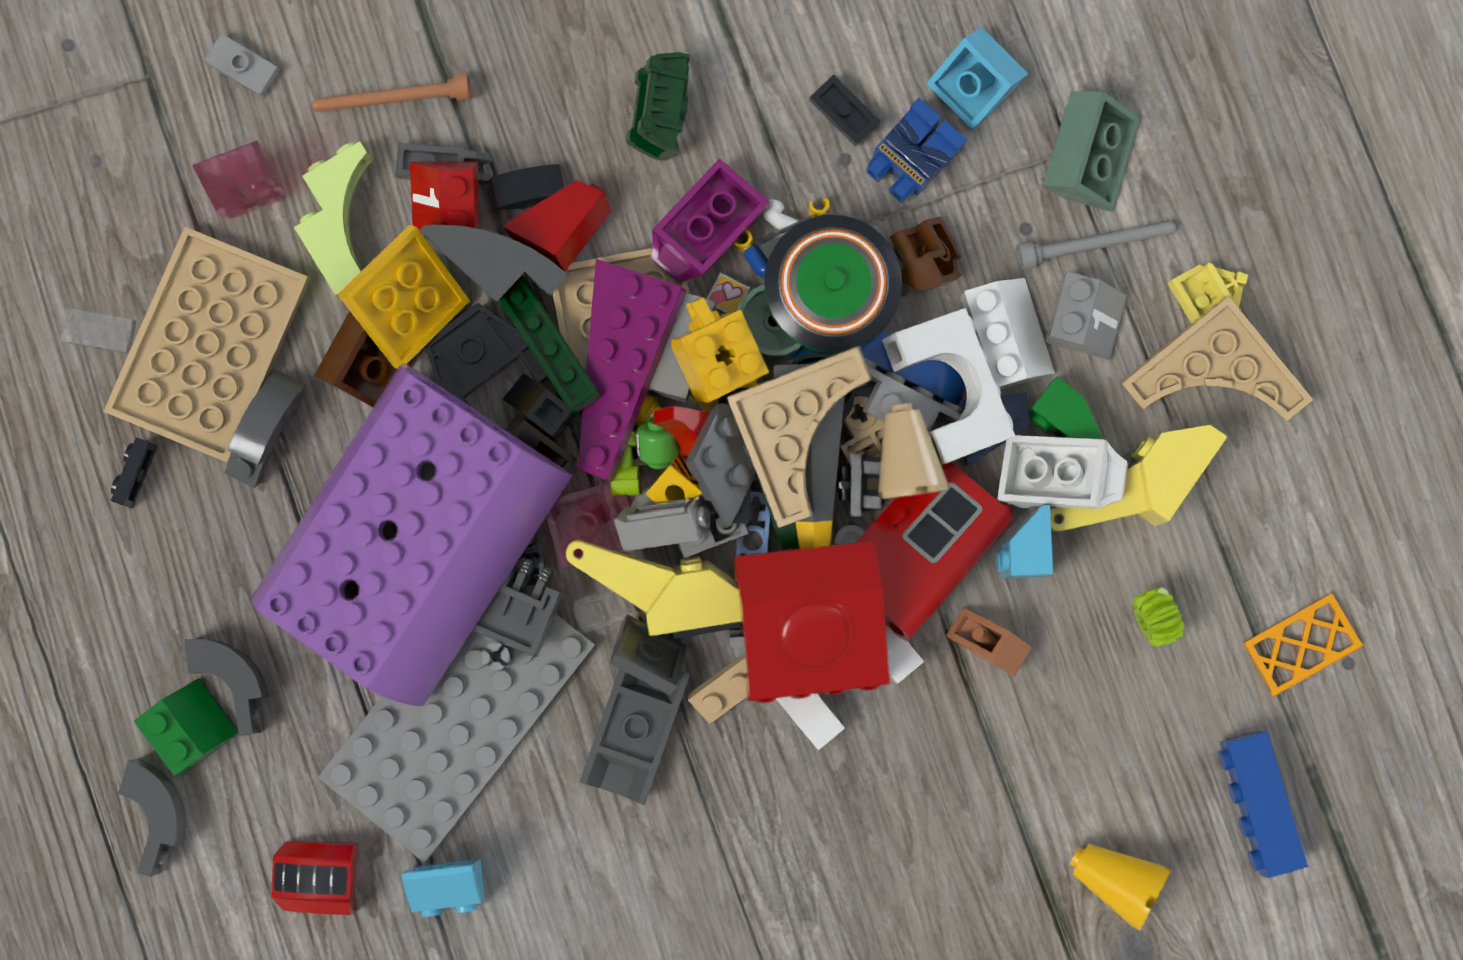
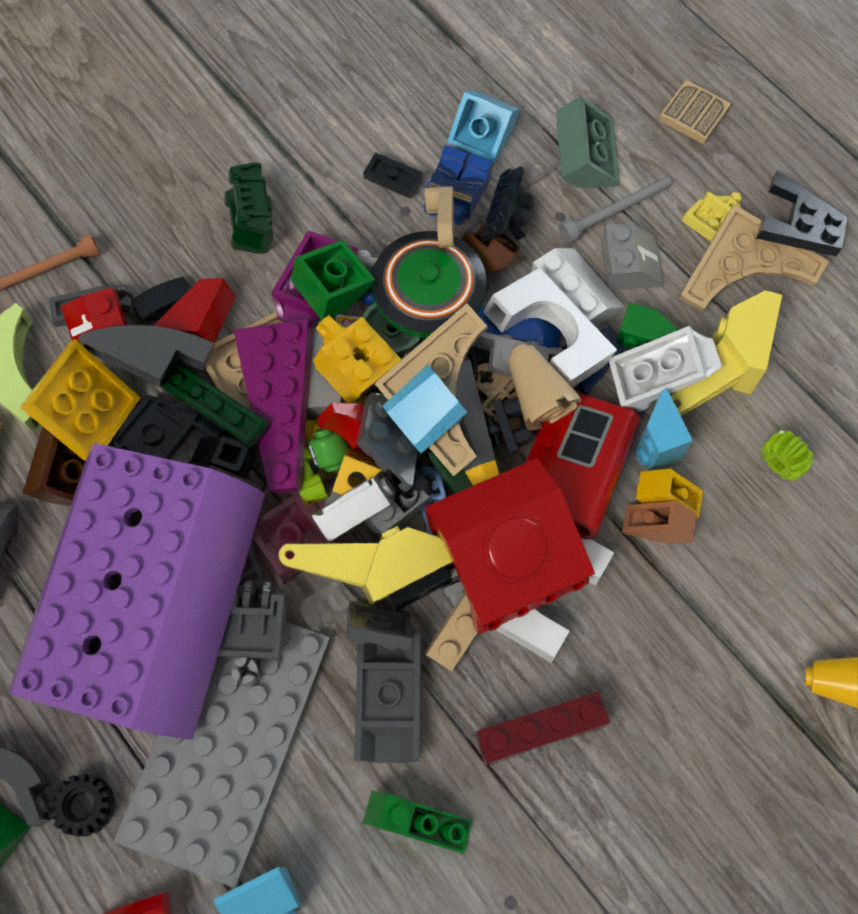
camera: 20 degrees left, 15 degrees down
(275, 726) = (62, 805): none -> black tyre
(622, 862) = (417, 821): none -> green slope
(723, 243) = (331, 278): none -> green slope
(771, 448) = (424, 409): none -> medium azure slope
(780, 816) = (542, 728): none -> dark red arch
(887, 178) = (441, 201): none -> tan beam
(965, 206) = (509, 208): none -> black bracket
(1013, 613) = (666, 486): none -> yellow slope
(1243, 143) = (694, 112): none -> tan tile
(1317, 347) = (811, 224): none -> wing

